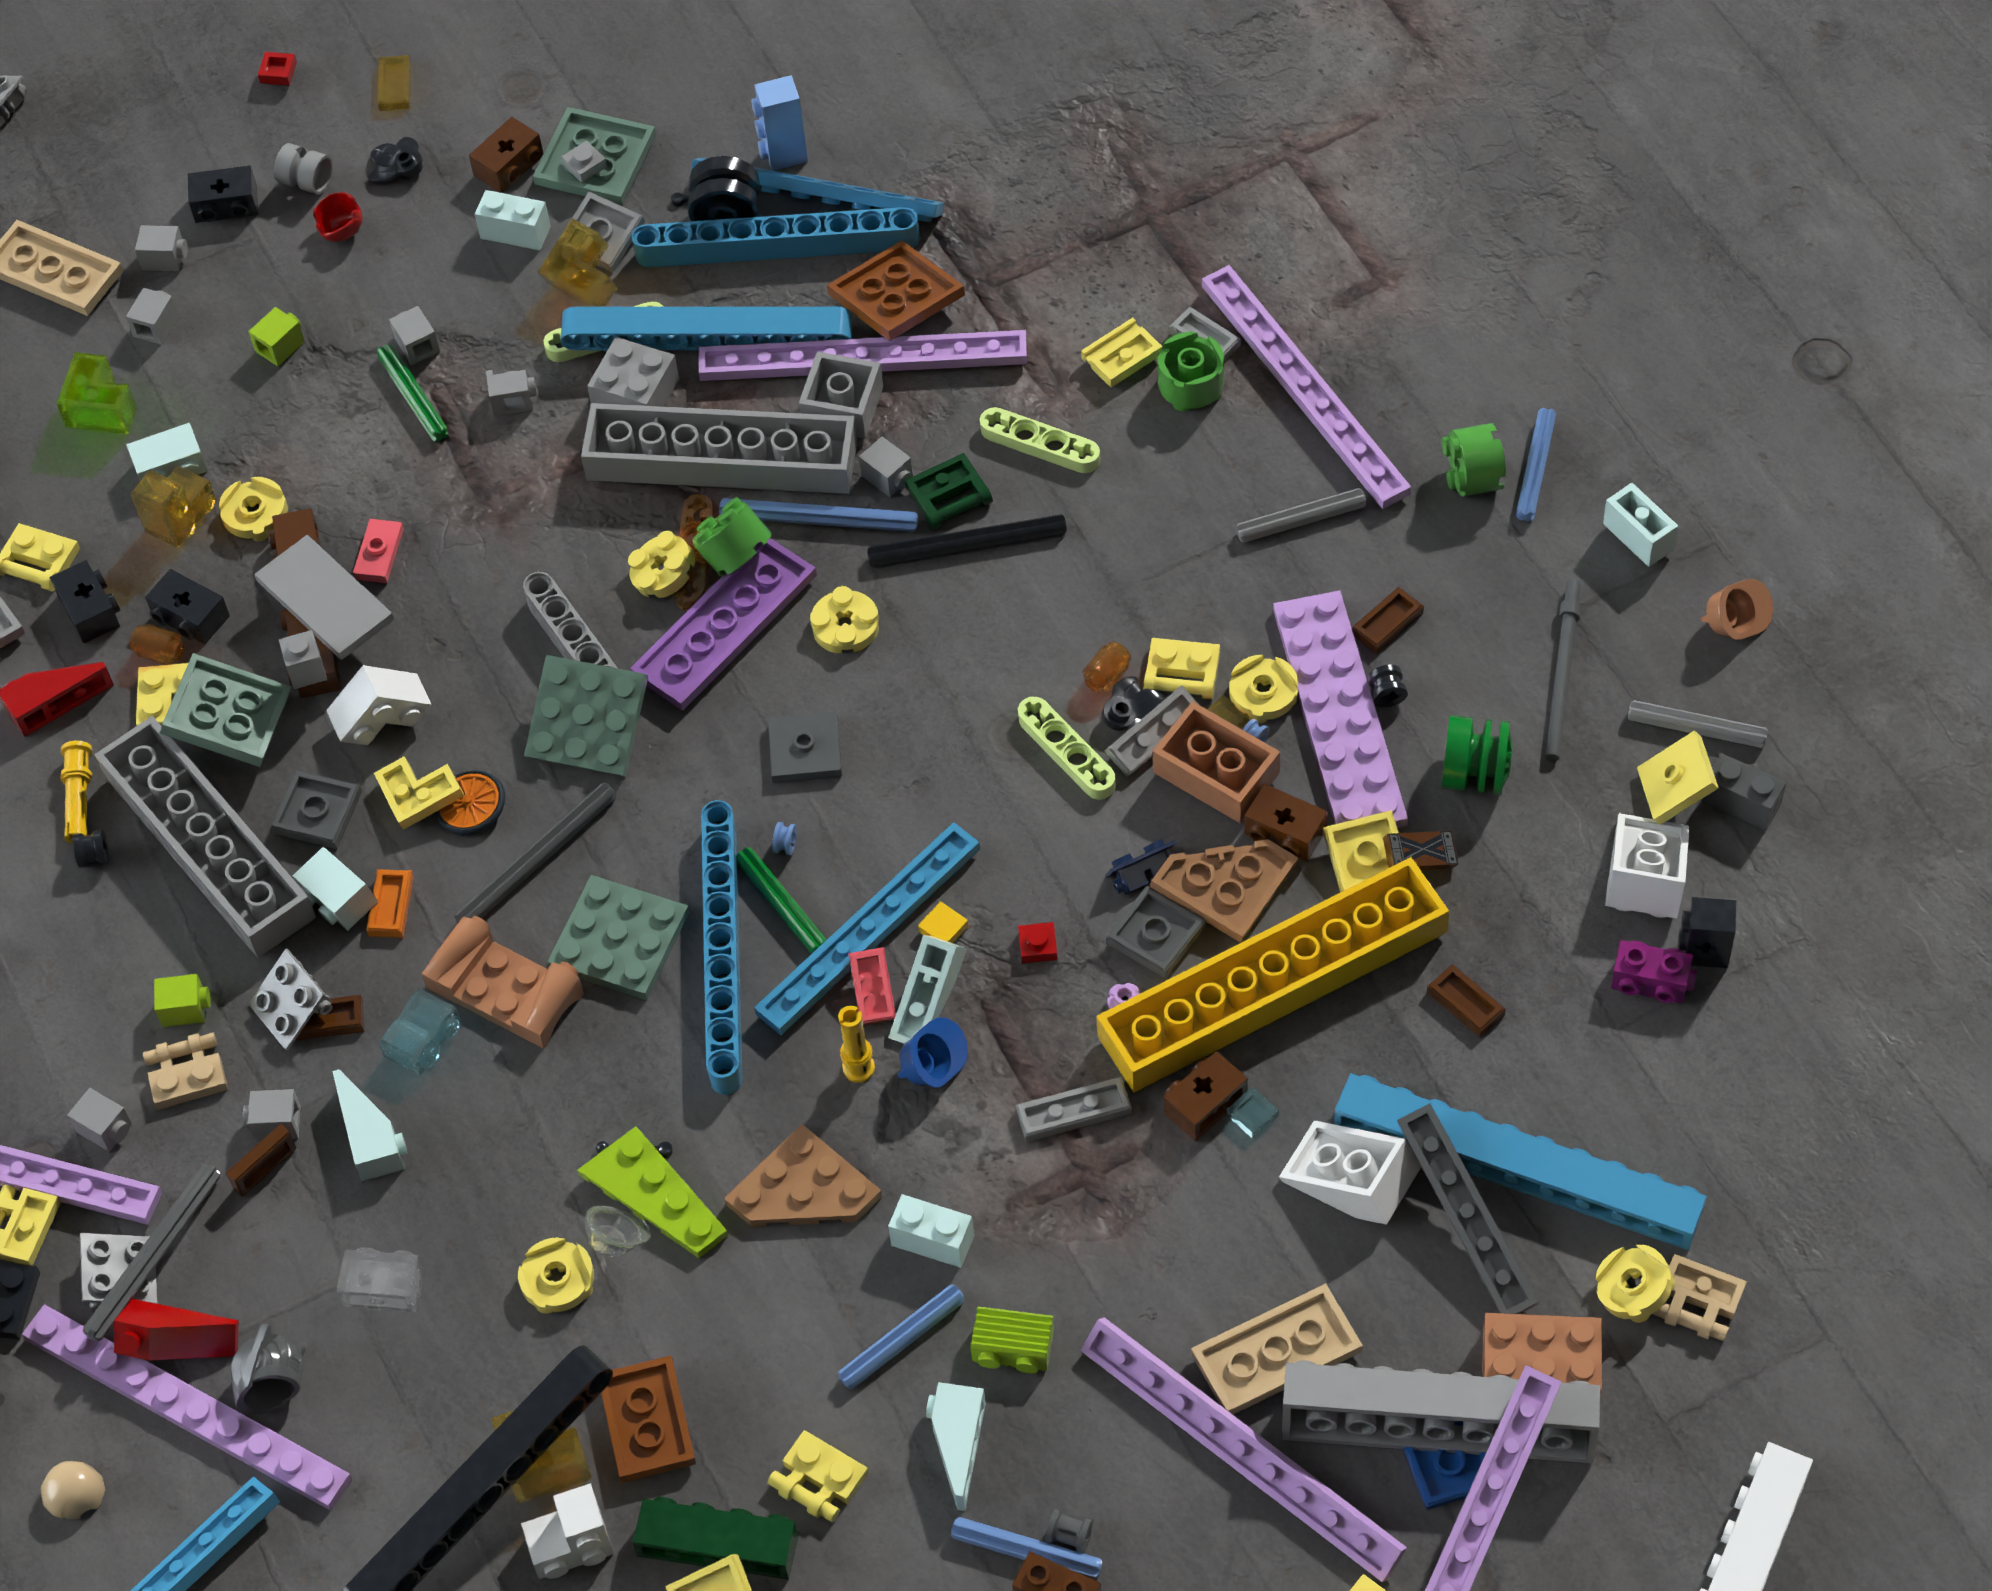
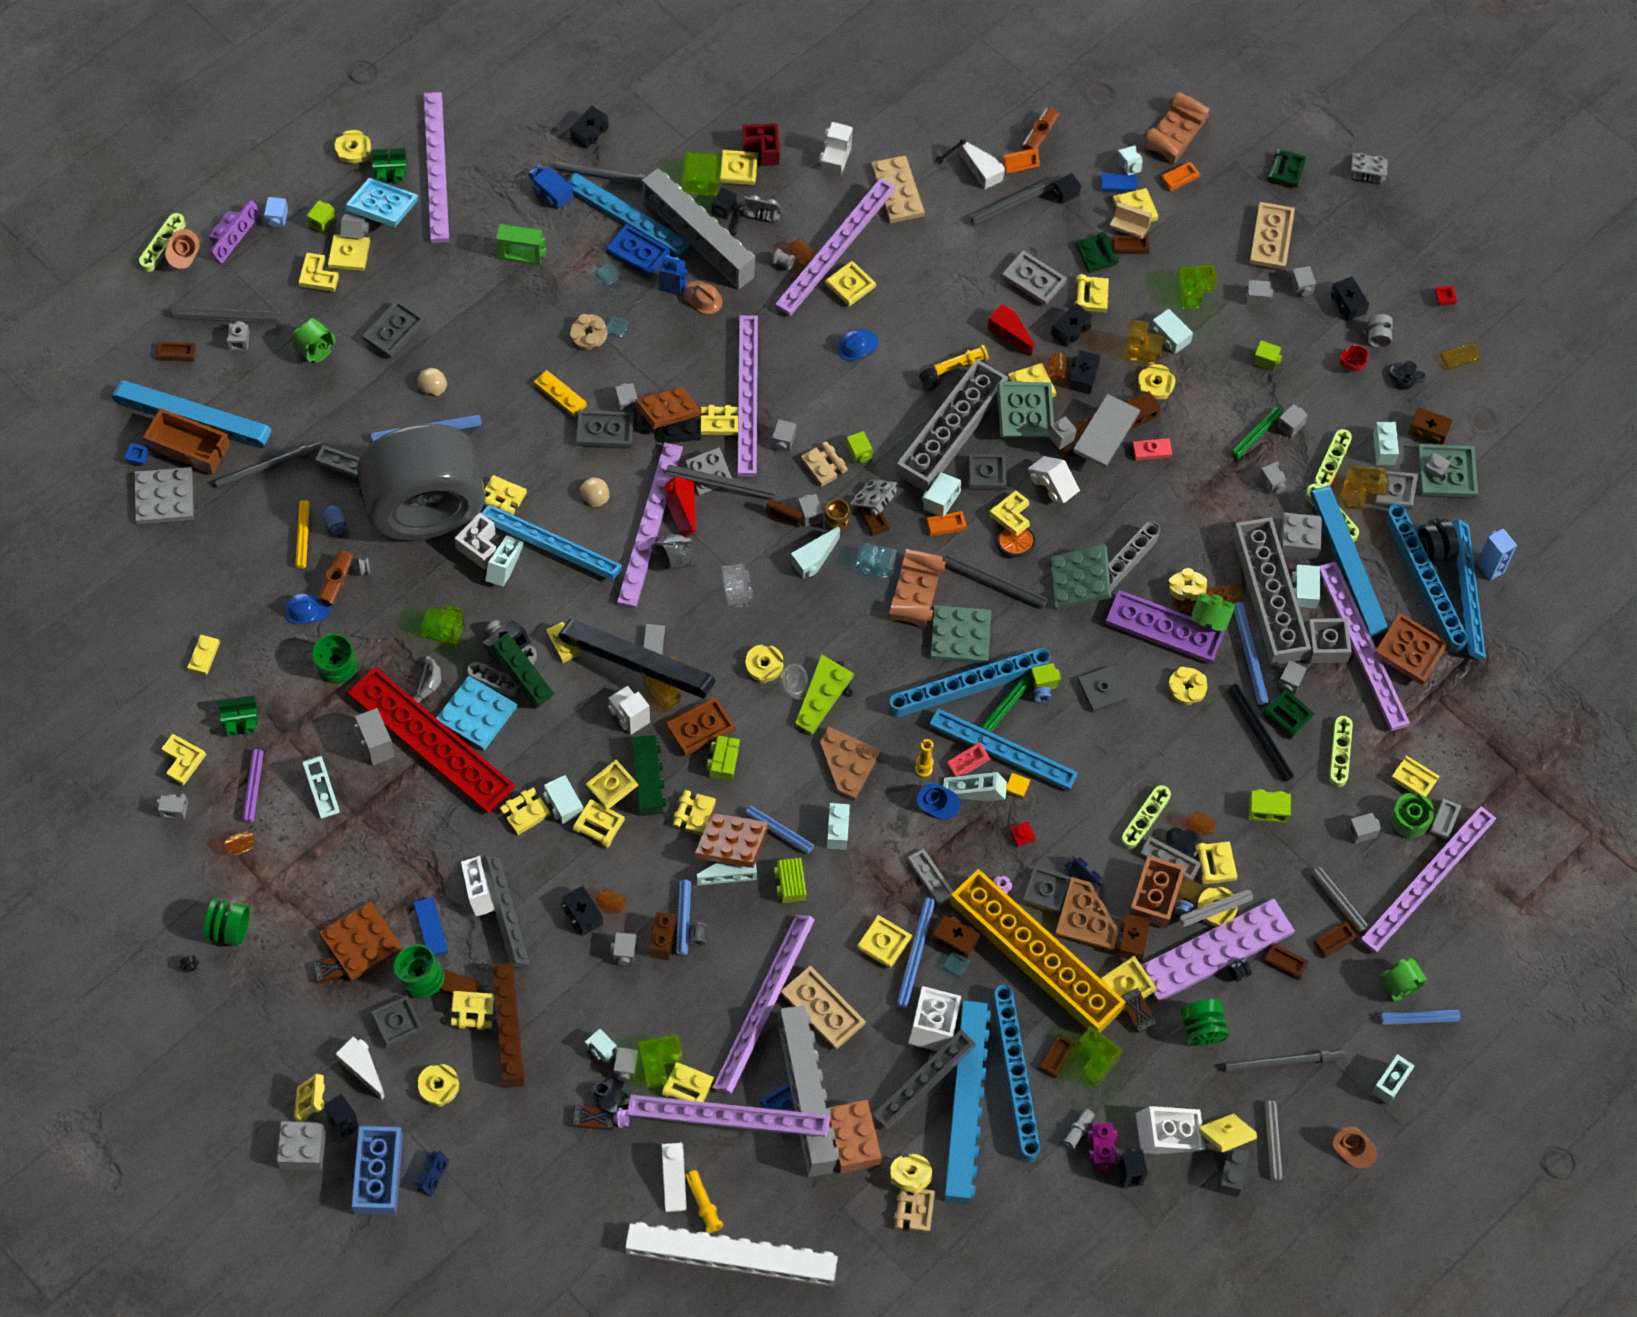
camera: 65 degrees right, 5 degrees up
(306, 1070) = (837, 514): none -> pearl gold wheel
(431, 1458) = (654, 638): none -> light grey tile
(504, 306) = (1333, 460): none -> yellowish green beam
(727, 392) = (1306, 585): none -> light aqua brick
(727, 1393) = (724, 758): none -> lime brick
(754, 825) = (1045, 676): none -> lime brick
(905, 1416) = (732, 840): none -> plate
(1107, 562) = (1269, 806): none -> lime brick
(1177, 1215) = (884, 941): none -> light yellow plate
(1189, 444) = (1364, 828): none -> light grey brick
(1212, 1170) = (915, 953): none -> medium blue axle
(1271, 684) = (1216, 907): none -> light grey axle
(1369, 541) = (1335, 939): none -> reddish brown tile
(1495, 925) = (1102, 1056): none -> clear neon green brick
(1502, 1060) = (1016, 1082): none -> dark azure beam
(1610, 1000) = (1079, 1129): none -> light grey pin

